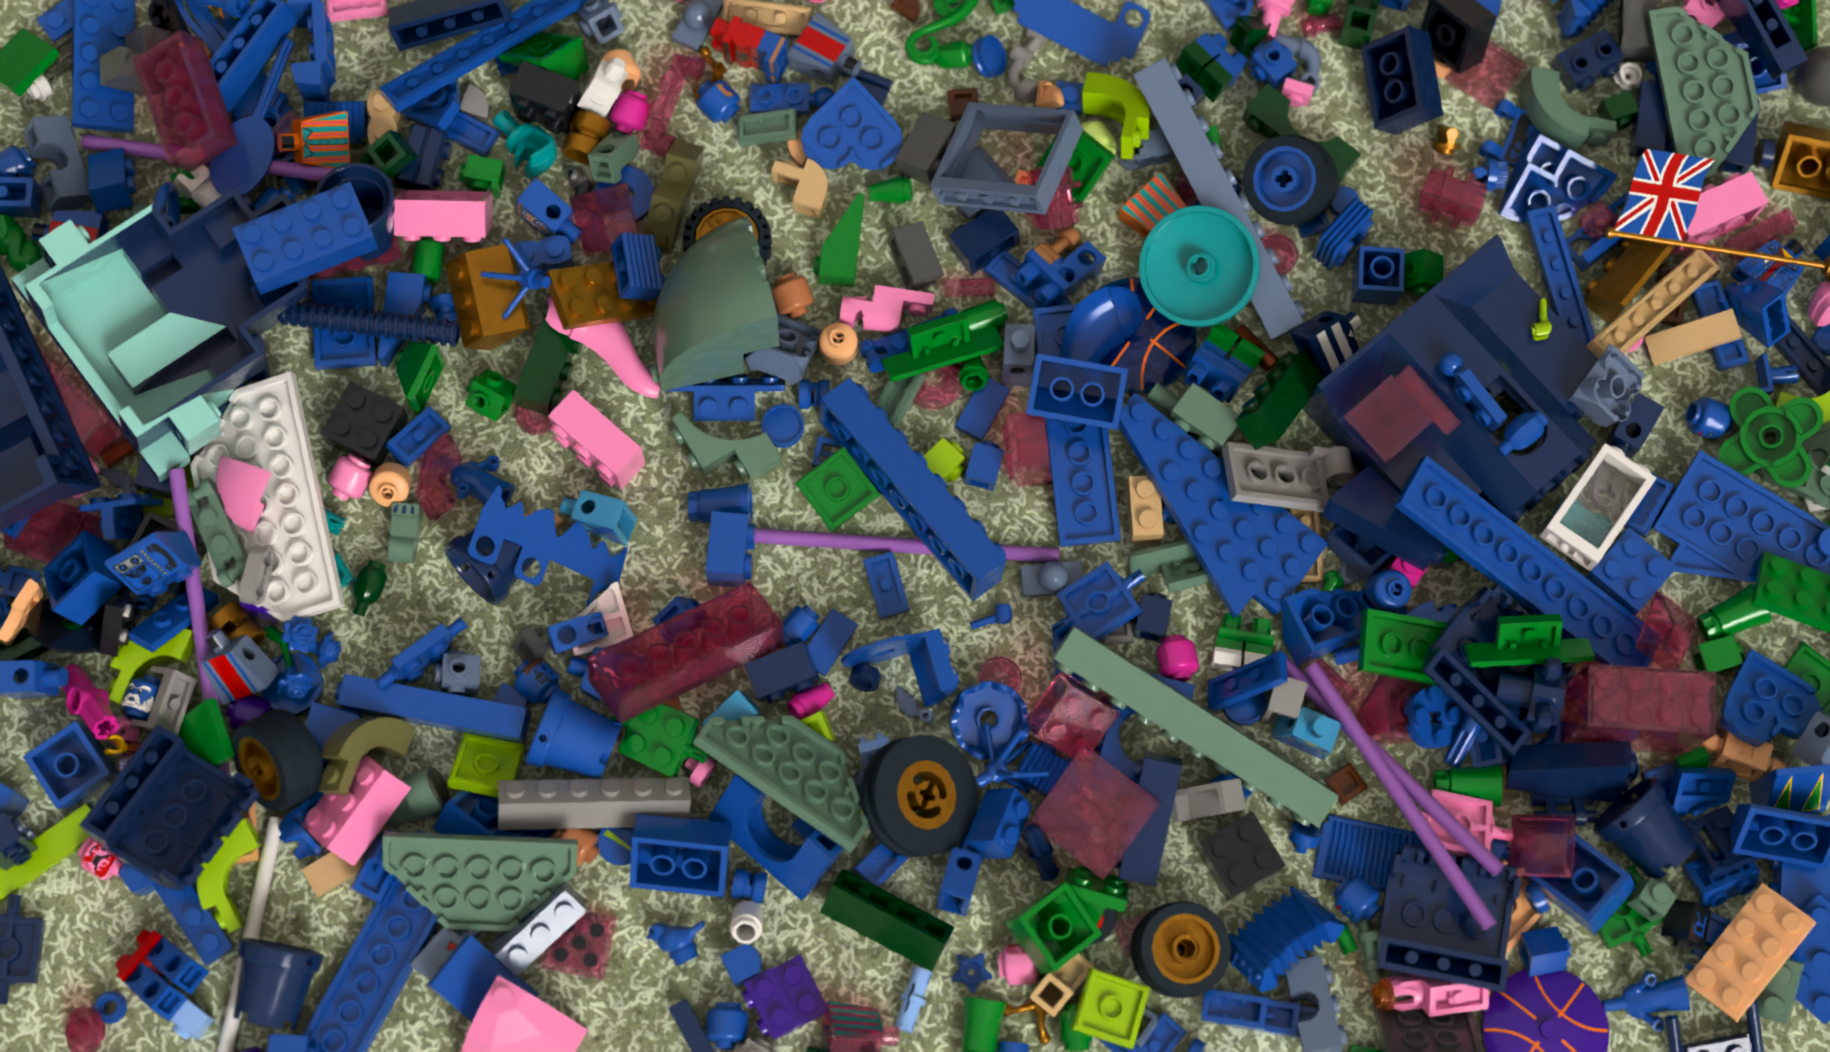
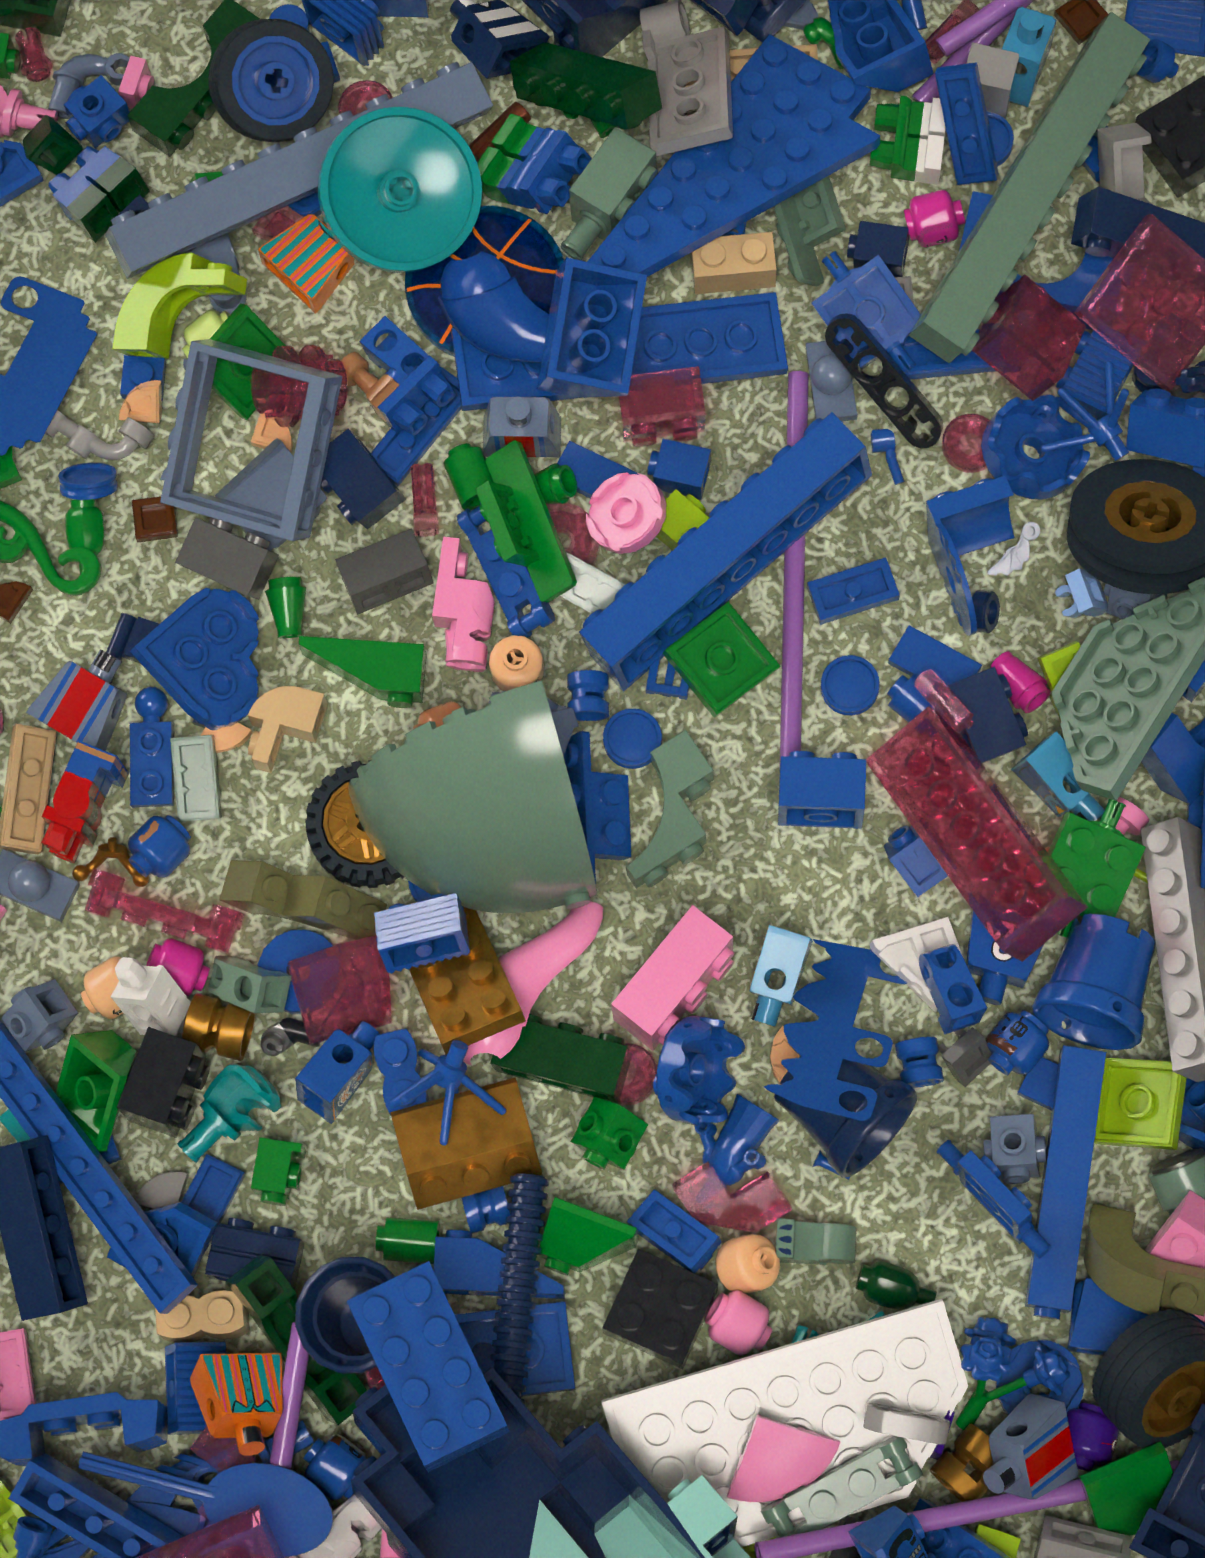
camera: 80 degrees left, 0 degrees up
(443, 214) = (344, 1204): bright pink brick -> none
(512, 454) = (694, 1070): none -> blue plate
(521, 614) = (919, 1062): none -> blue wheel
(725, 499) = (753, 809): blue plant -> none
(789, 636) = (944, 700): none -> clear pink piece
(815, 580) = (850, 685): none -> blue piece
(948, 422) = (626, 513): none -> bright pink tile
(1041, 607) = (879, 384): none -> black beam

